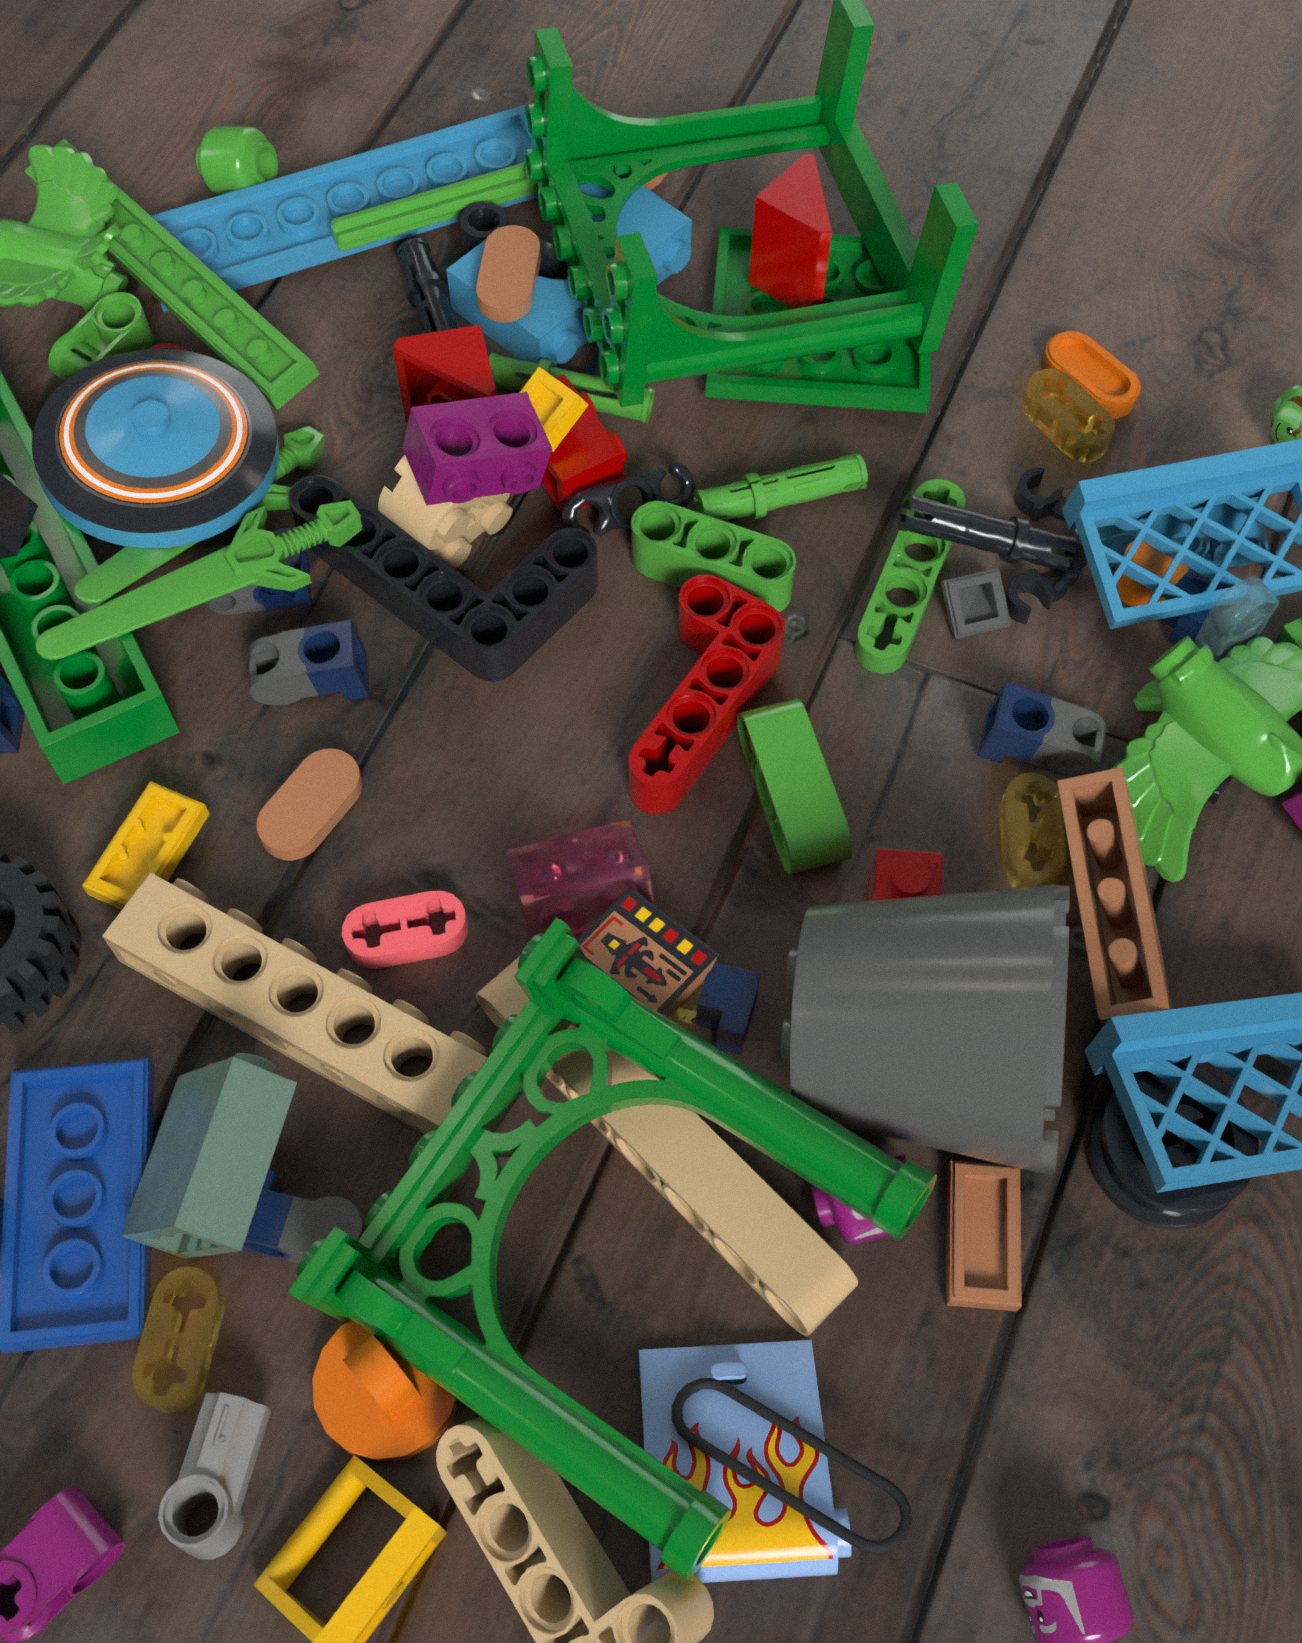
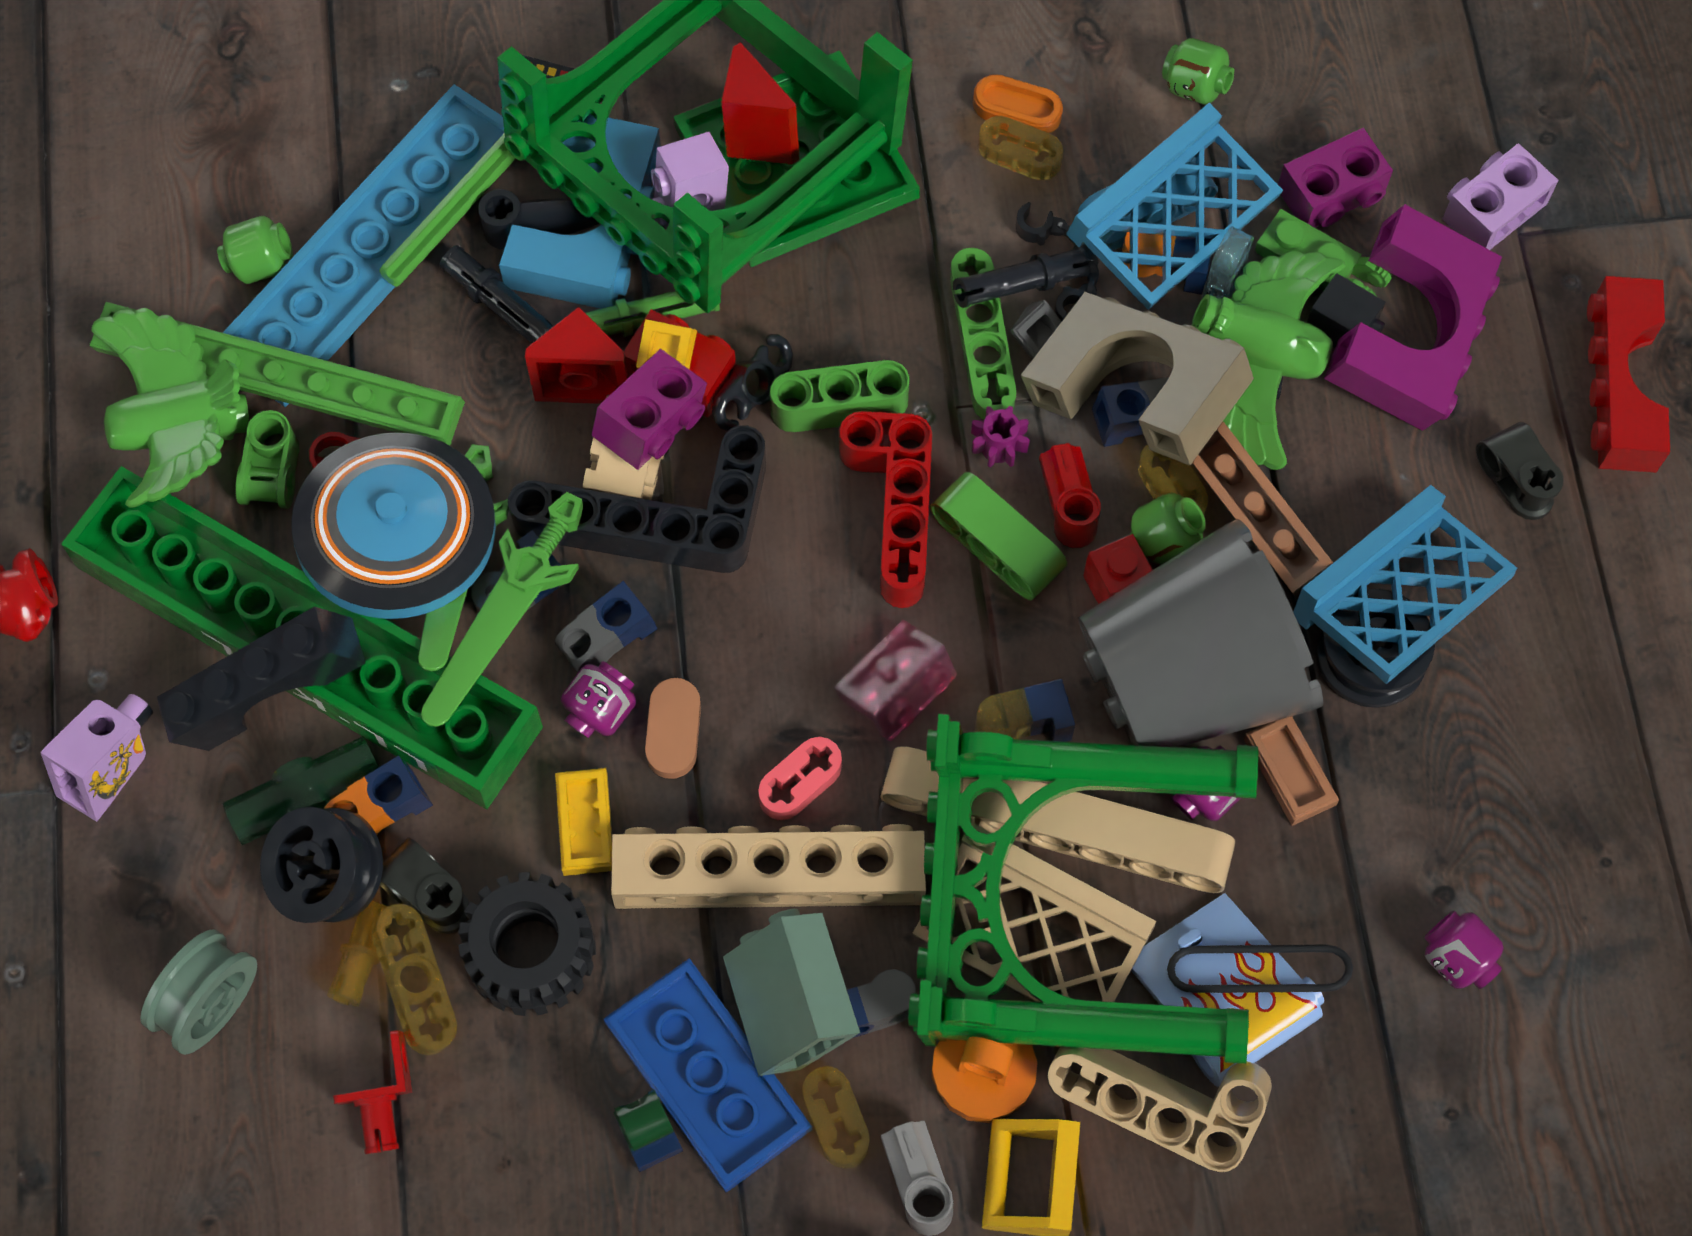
camera: 30 degrees left, 5 degrees up
(247, 730) = (598, 700): none -> magenta head
(508, 273) = (554, 246): nougat tile -> none
(613, 1233) = (1068, 896): none -> tan fence
(647, 952) = (981, 702): piece -> none
(690, 262) = (690, 167): none -> lavender brick
(797, 485) = (839, 328): bright green pin -> none
(861, 682) = (1000, 436): none -> magenta gear
(903, 783) = (1070, 494): none -> red piece
(991, 863) = (1167, 526): none -> bright green head
(1040, 631) = (1106, 335): none -> dark tan arch

